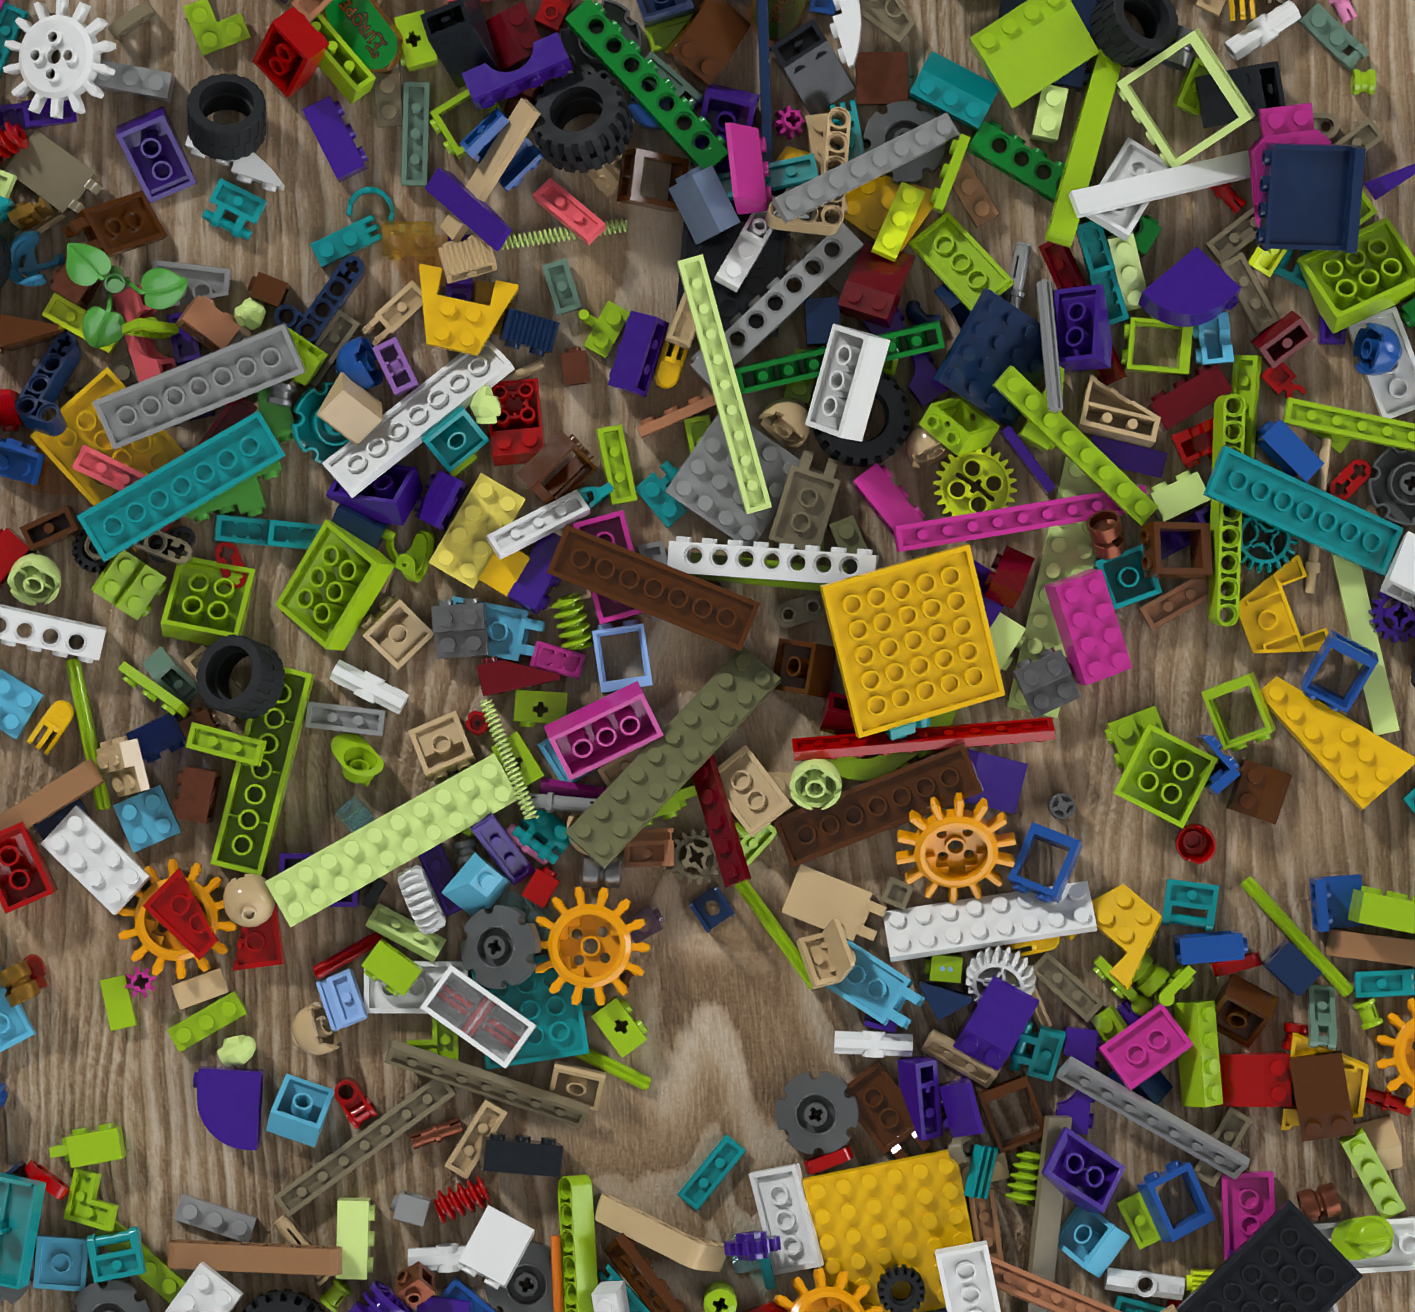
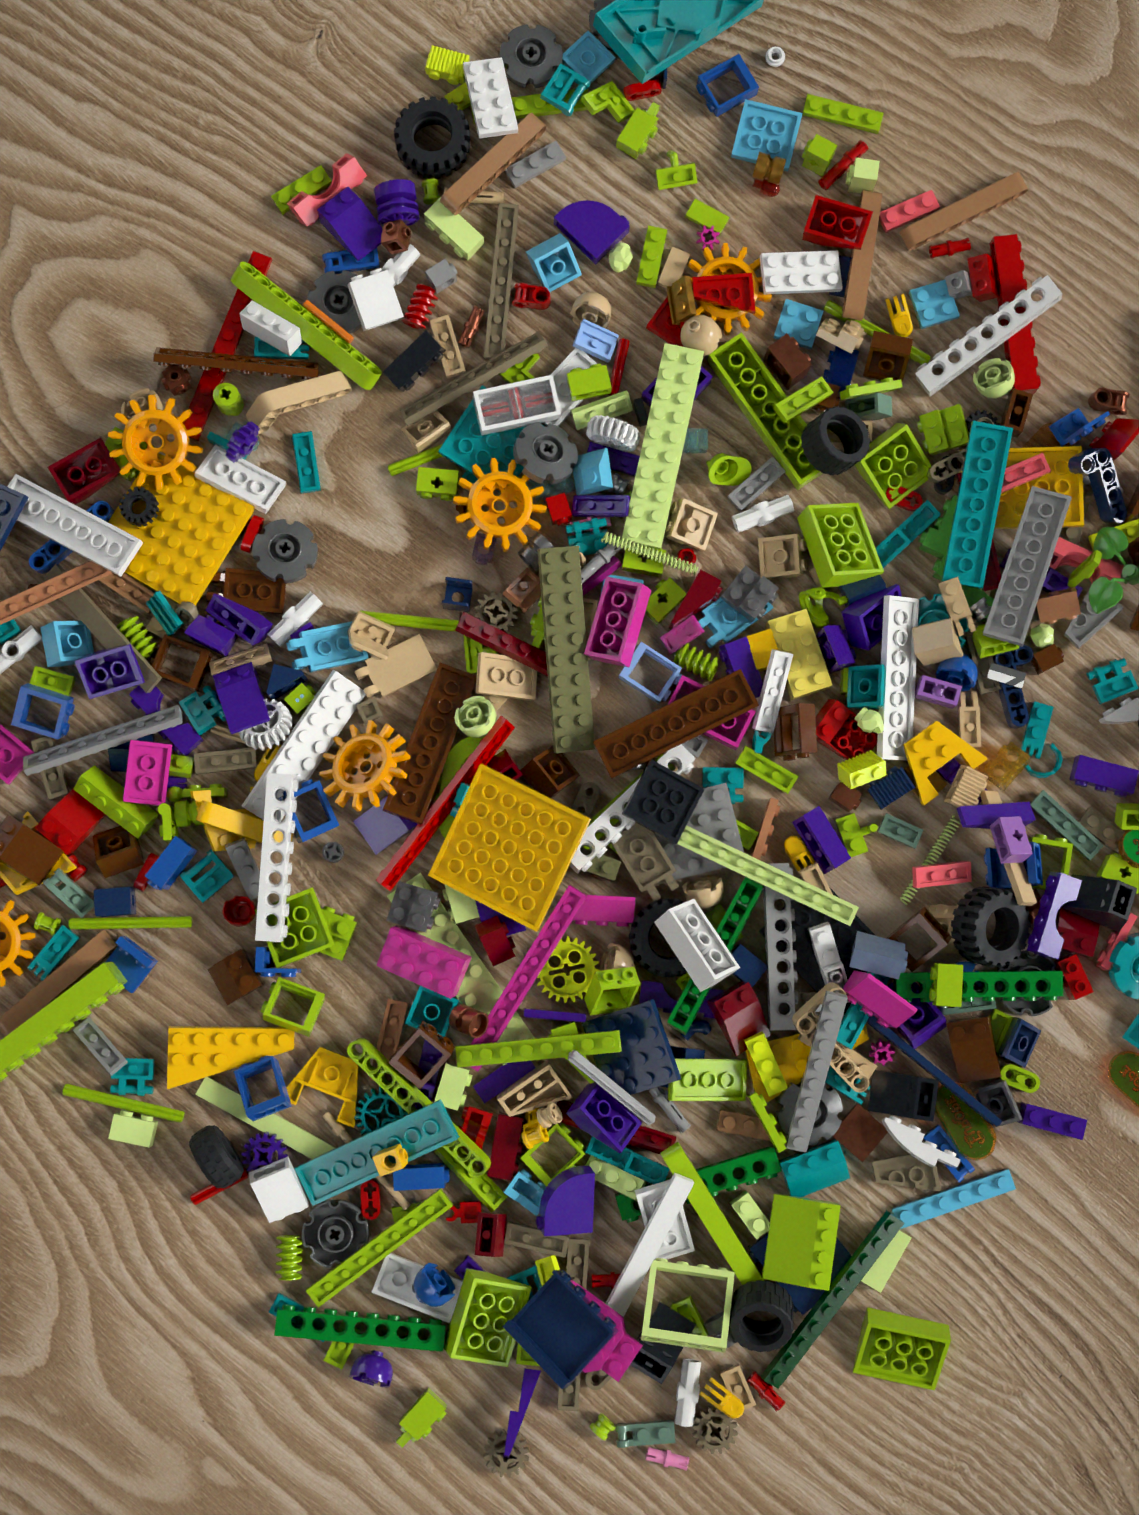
camera: 125 degrees right, 5 degrees down
(103, 1070) = (676, 174): none -> lime plate
(105, 701) = (888, 356): none -> reddish brown slope
(230, 950) = (681, 300): none -> pearl gold plate
(297, 422) = (956, 604): none -> tan hinge
(322, 314) = (1006, 675): none -> sticker
(482, 173) = (1011, 839): none -> medium lavender brick
(538, 373) = (861, 769): none -> neon yellow brick
(676, 115) = (946, 985): none -> lime brick
(739, 533) = (663, 801): none -> black plate
(1113, 909) = (234, 822): none -> yellow beam
(1126, 381) = (549, 1115): none -> tan wheel
(1150, 382) = (532, 1131): none -> yellow connector
(1150, 872) = (245, 866): none -> light grey plate
(1193, 800) = (264, 930): none -> white brick
(1309, 491) = (383, 1164): none -> yellow brick

